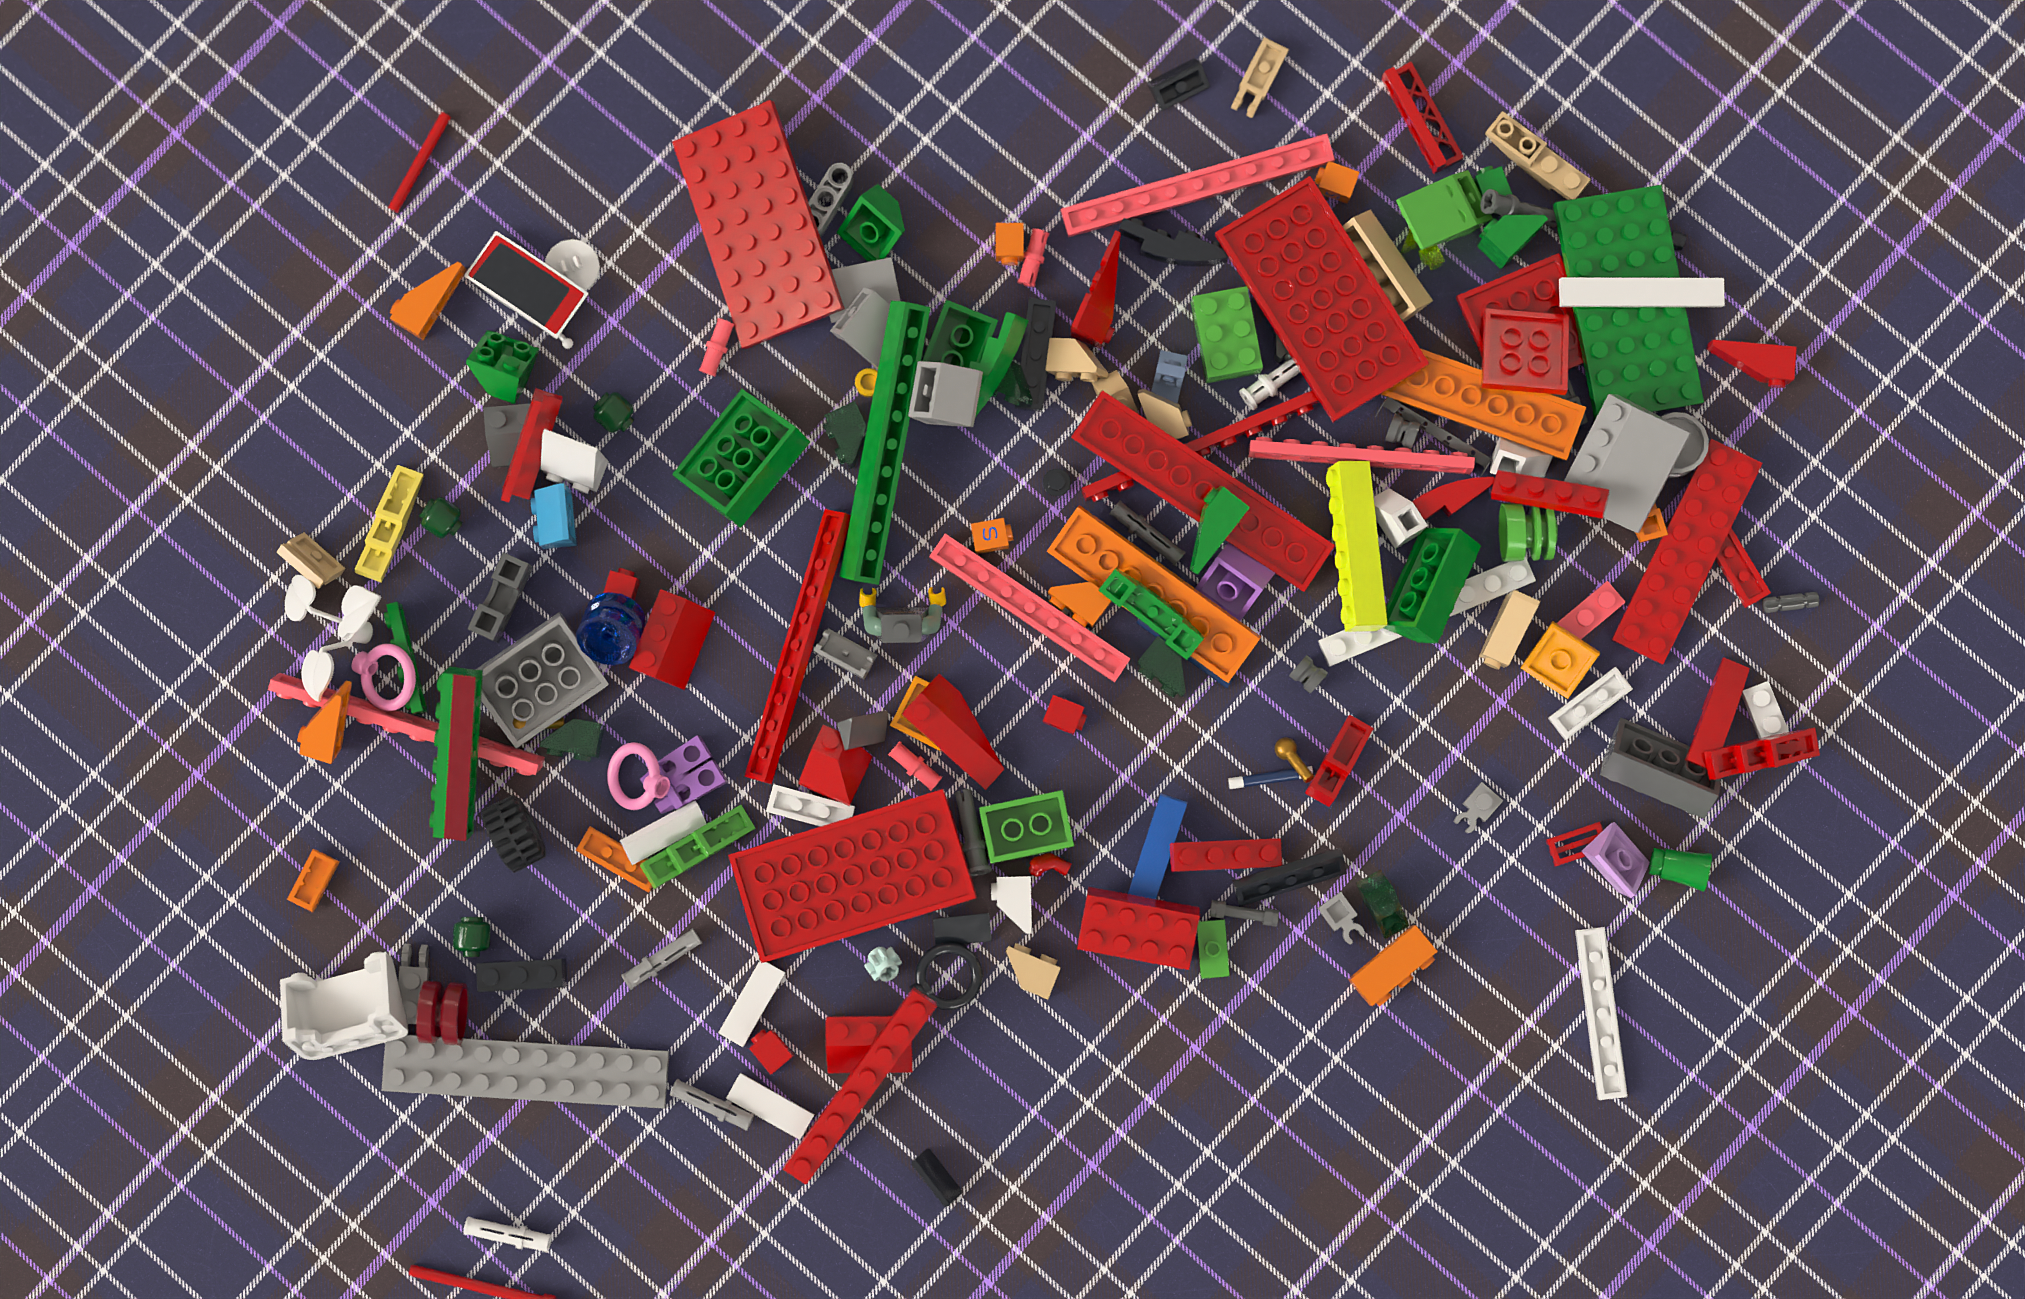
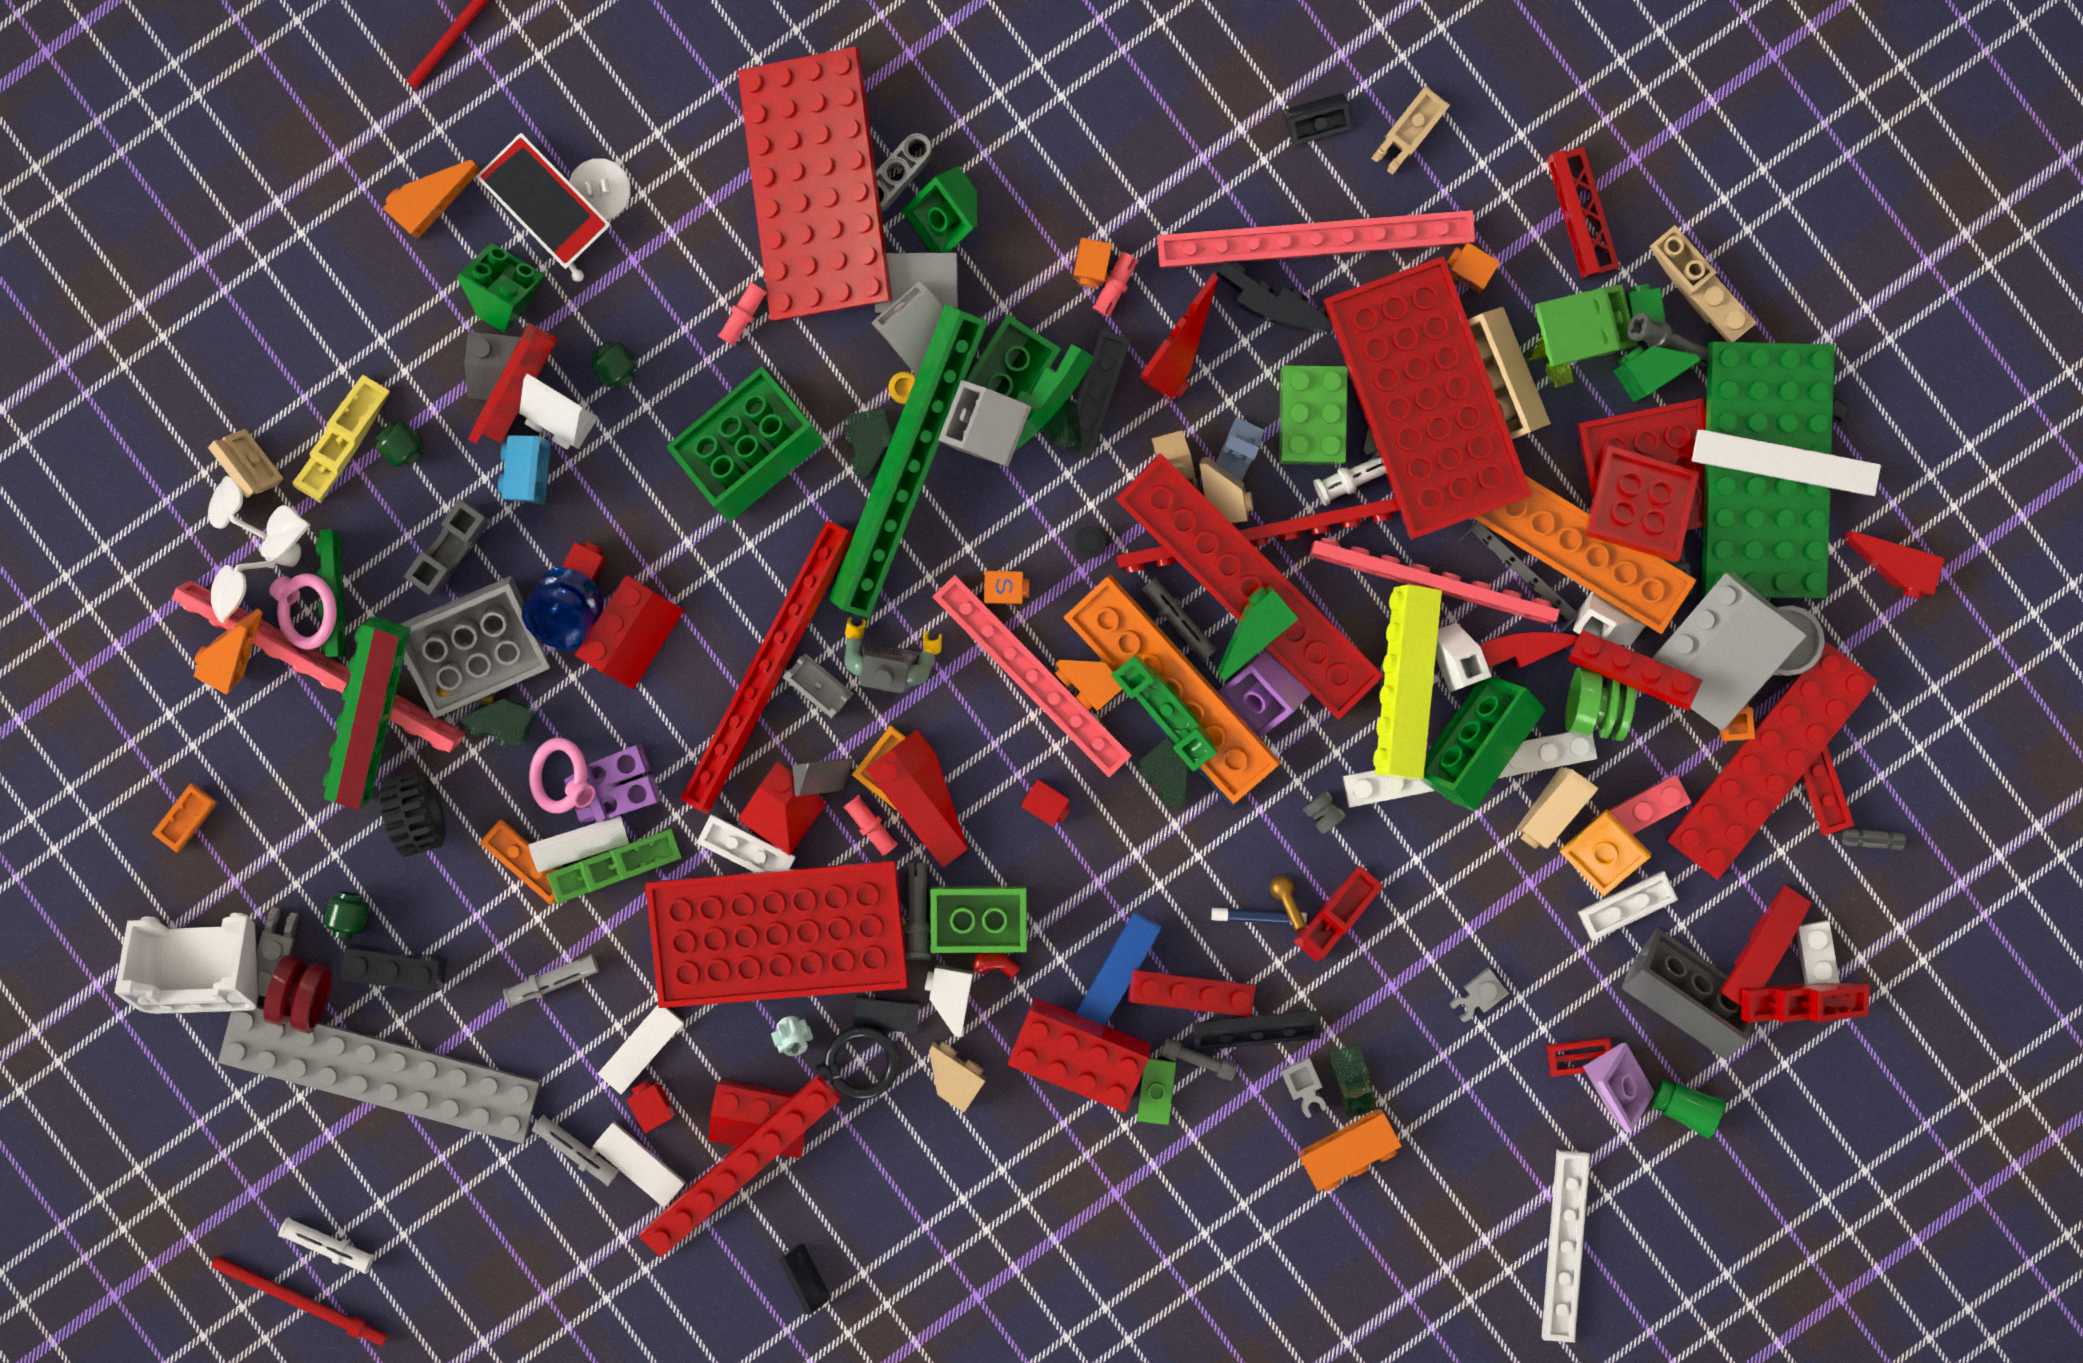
camera: 15 degrees right, 5 degrees up
(1073, 359) = (1136, 408): tan slope -> none
(1396, 430) = (1478, 562): dark grey wheel -> none

